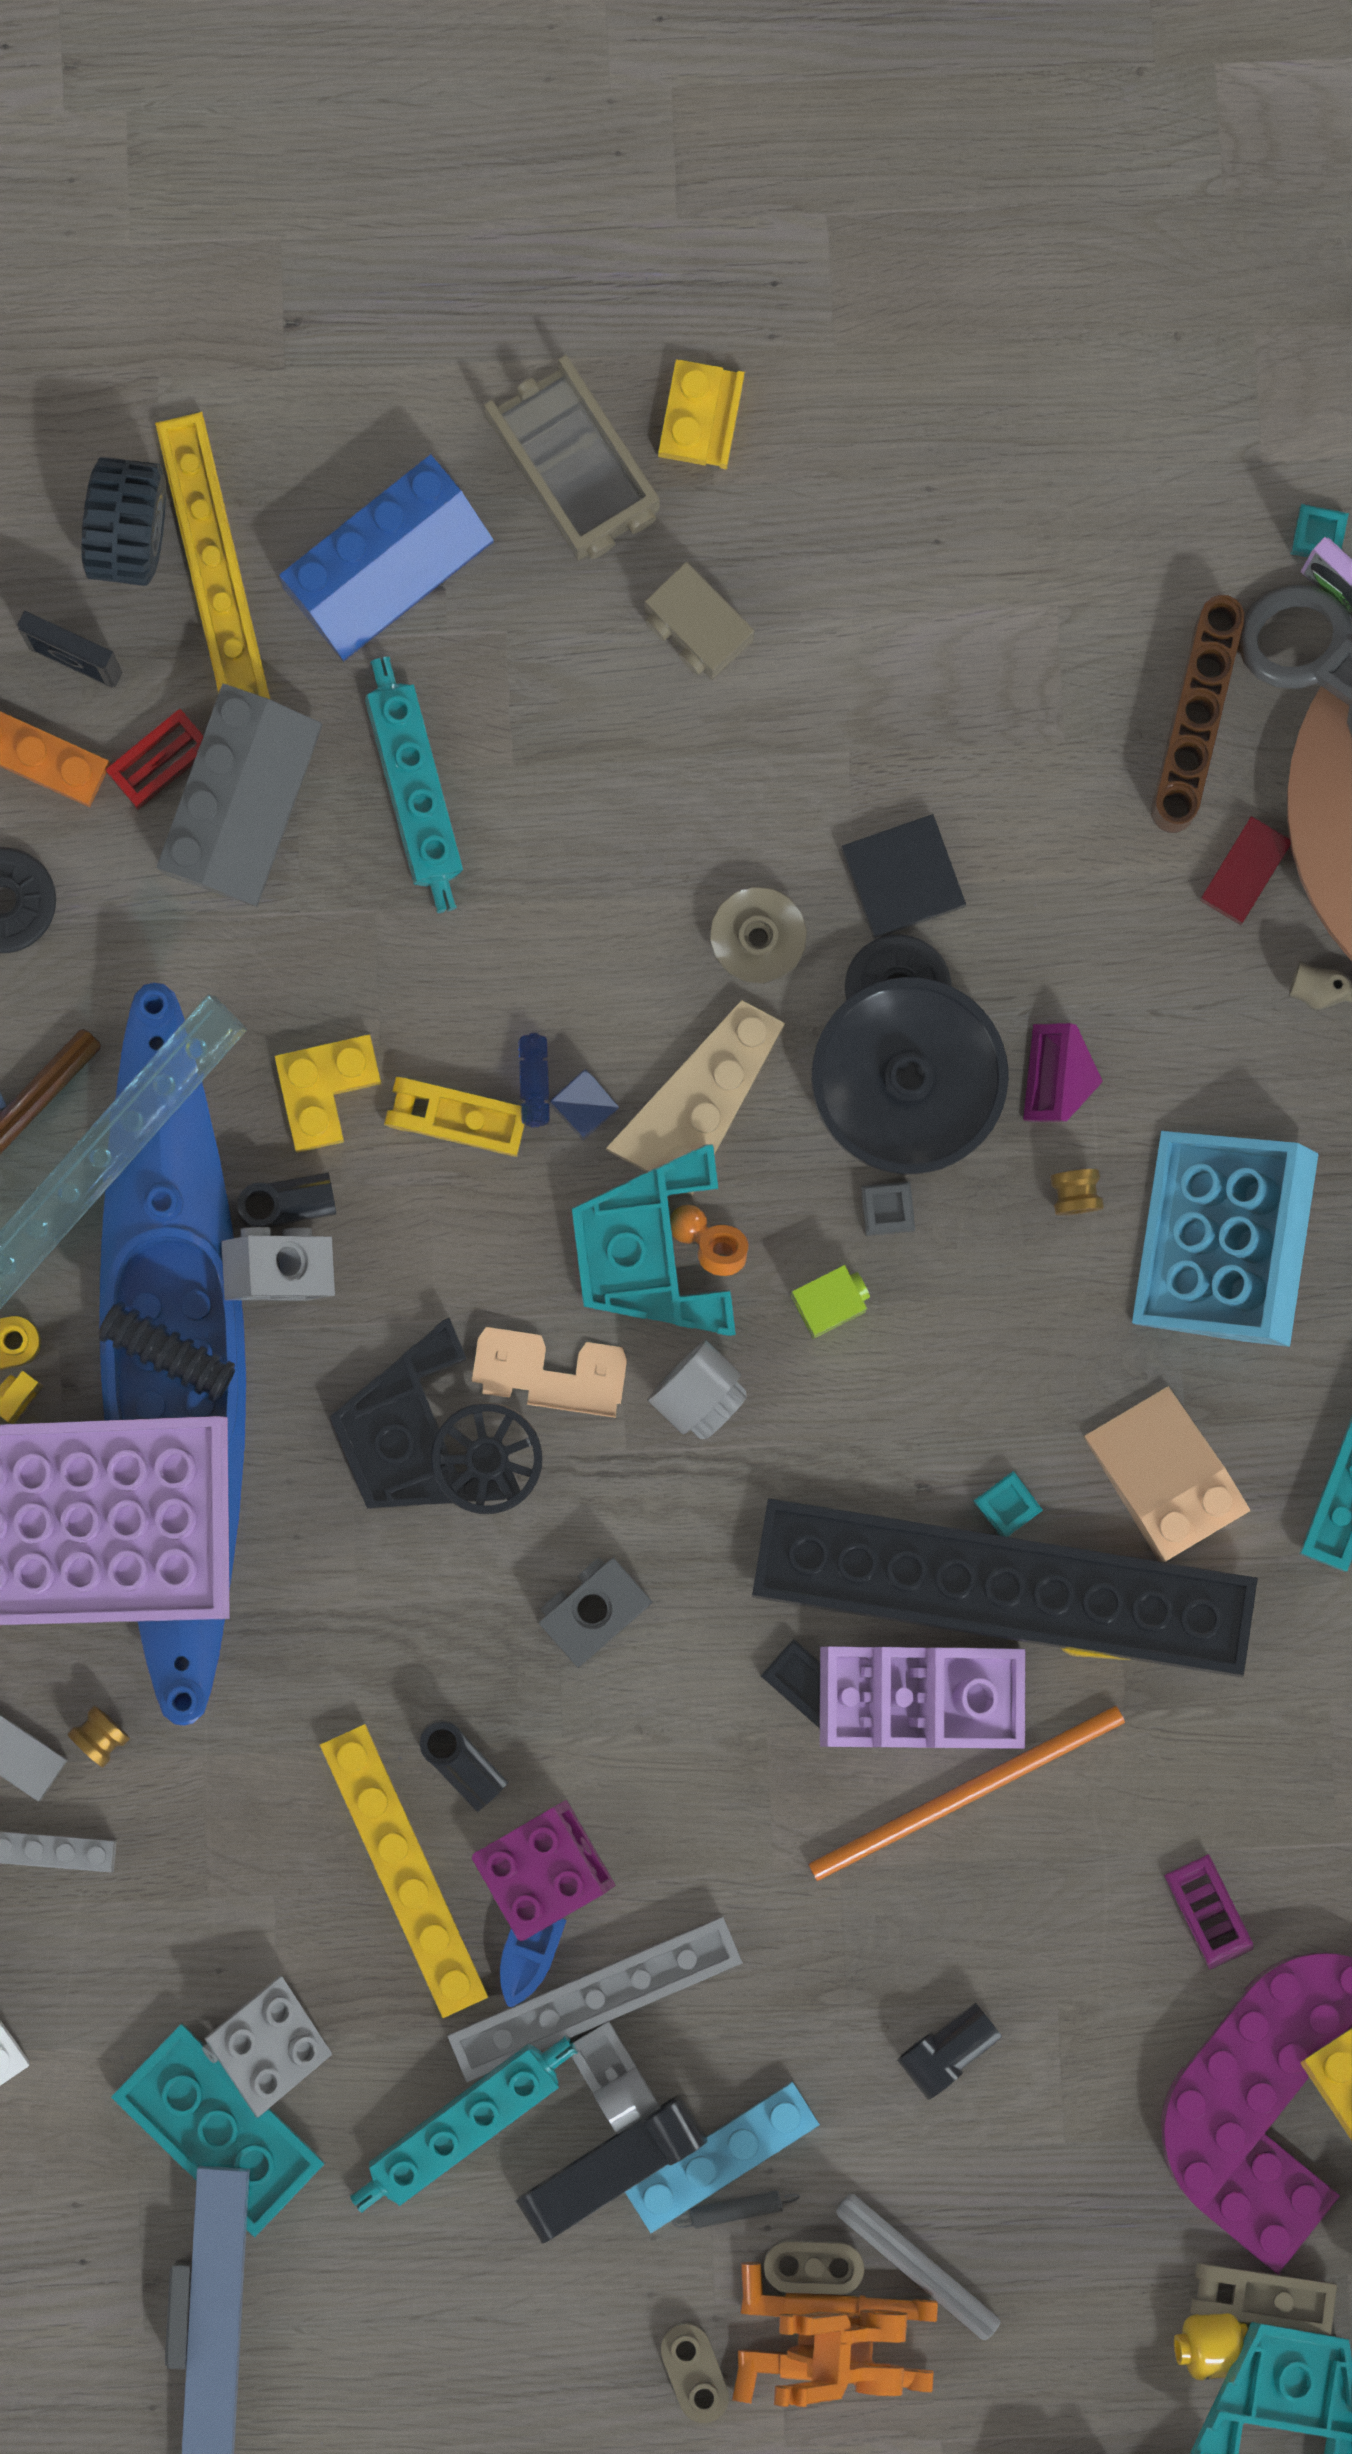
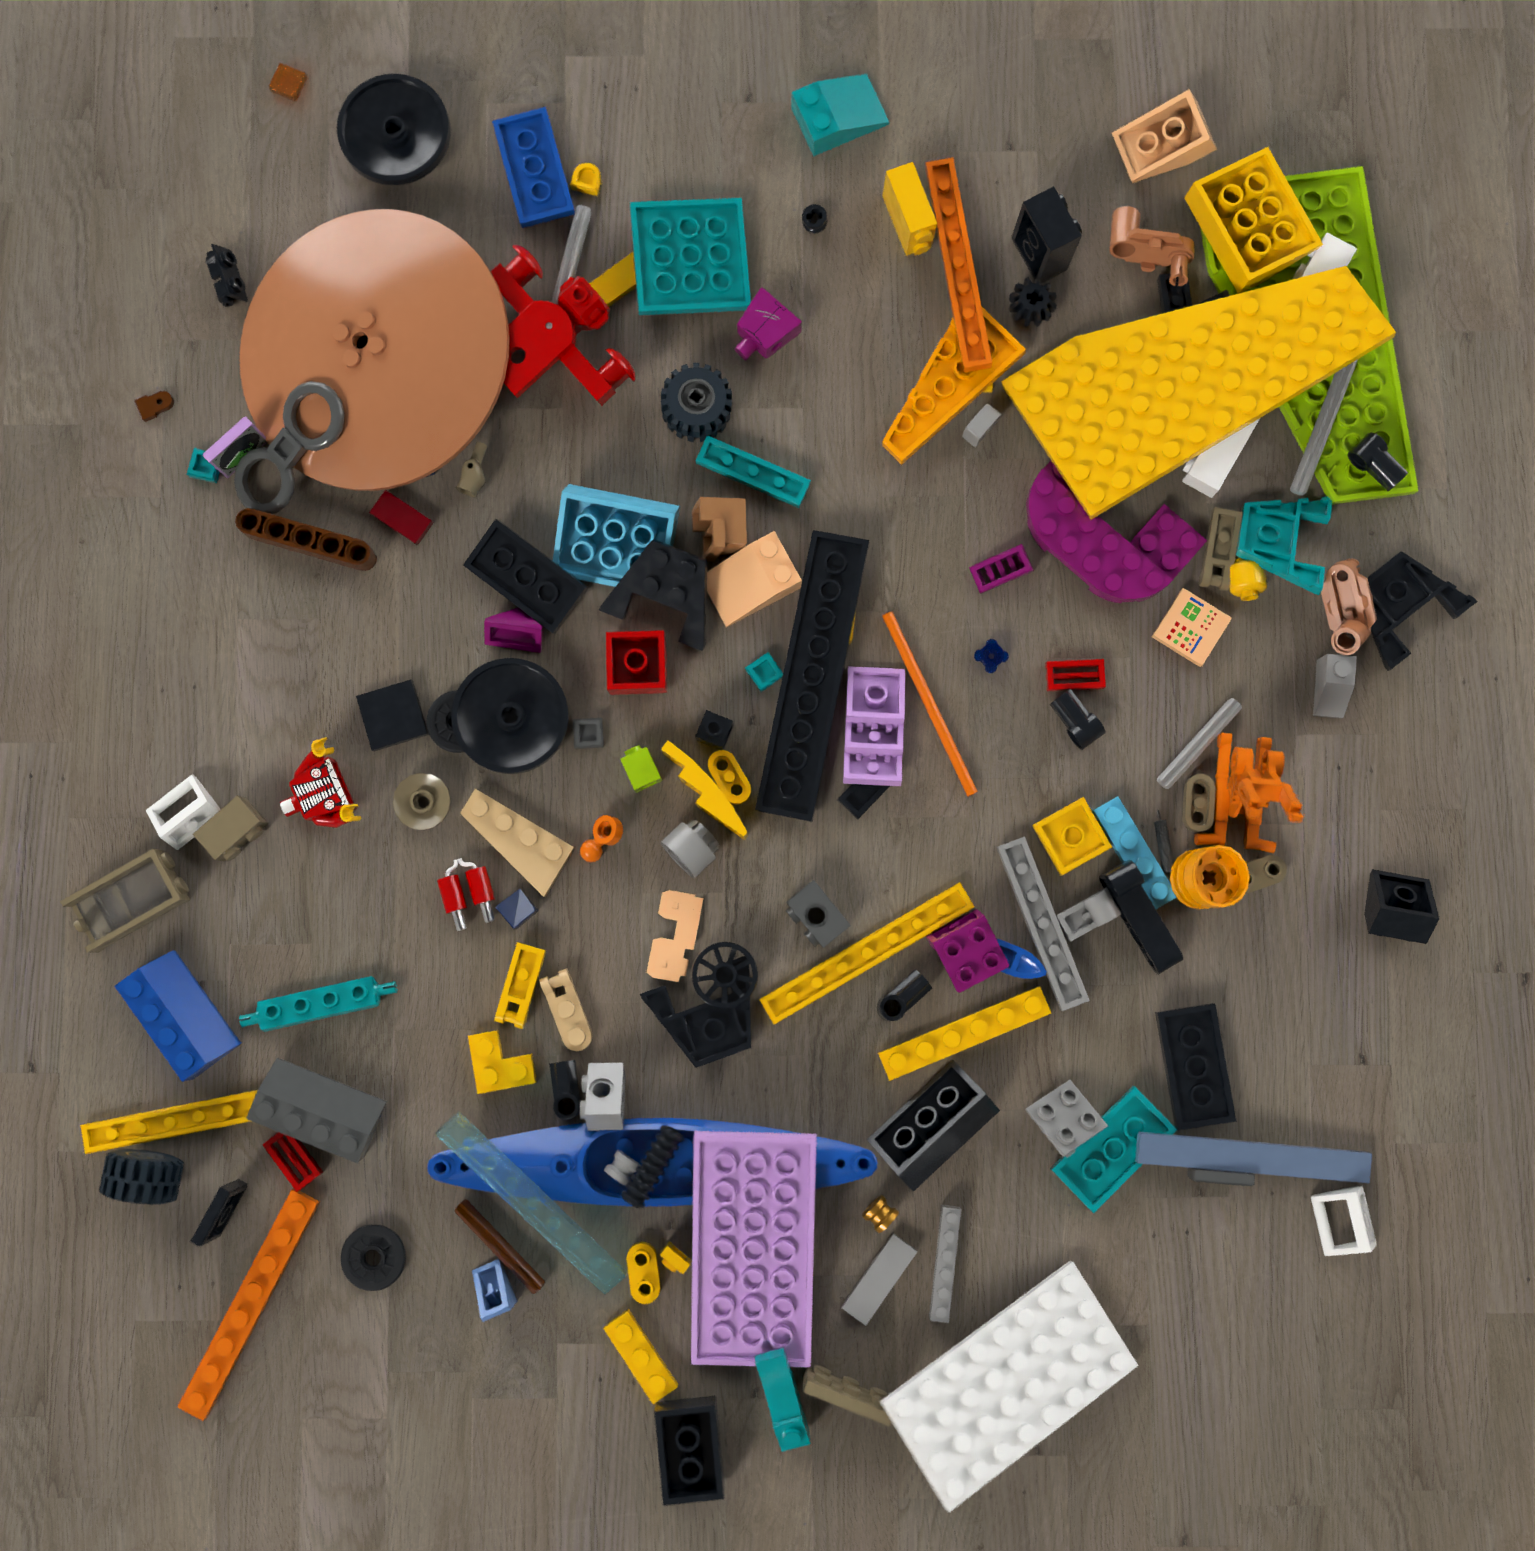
camera: 80 degrees left, 0 degrees up
(162, 1301) = (622, 1167): none -> light grey wheel
(248, 1821) = (933, 1125): none -> black slope
(361, 2268) = (1195, 1066): none -> black plate
(416, 1198) = (567, 1011): none -> tan plate
(464, 2124) = (1114, 1003): teal plate -> none
(533, 1700) = (866, 953): none -> yellow tile
(534, 1080) = (500, 938): clear blue axle -> none
(615, 1040) = (454, 898): none -> red piece
(630, 1253) = (604, 885): teal wing -> none
(684, 2309) = (1209, 877): none -> light orange wheel
(701, 414) = (105, 822): yellow plate -> none
(709, 553) = (181, 827): none -> white tile
(746, 2046) = (1072, 836): none -> yellow plate
(768, 766) = (320, 790): none -> torso
(782, 1424) = (711, 797): none -> yellow slope
(822, 1452) = (730, 777): none -> yellow plate
(901, 1423) = (714, 730): none -> black brick
(1011, 1285) = (636, 662): none -> red brick
(1031, 2089) = (1050, 676): none -> red tile
(1069, 1897) = (991, 648): none -> clear blue plate
(1077, 1192) = (584, 622): pearl gold wheel -> none
(1122, 2250) = (1191, 627): none -> light nougat tile
(1152, 1088) = (525, 576): none -> black plate
(1158, 1335) = (668, 578): none -> black wing
(1255, 1420) = (722, 525): none -> medium nougat plate

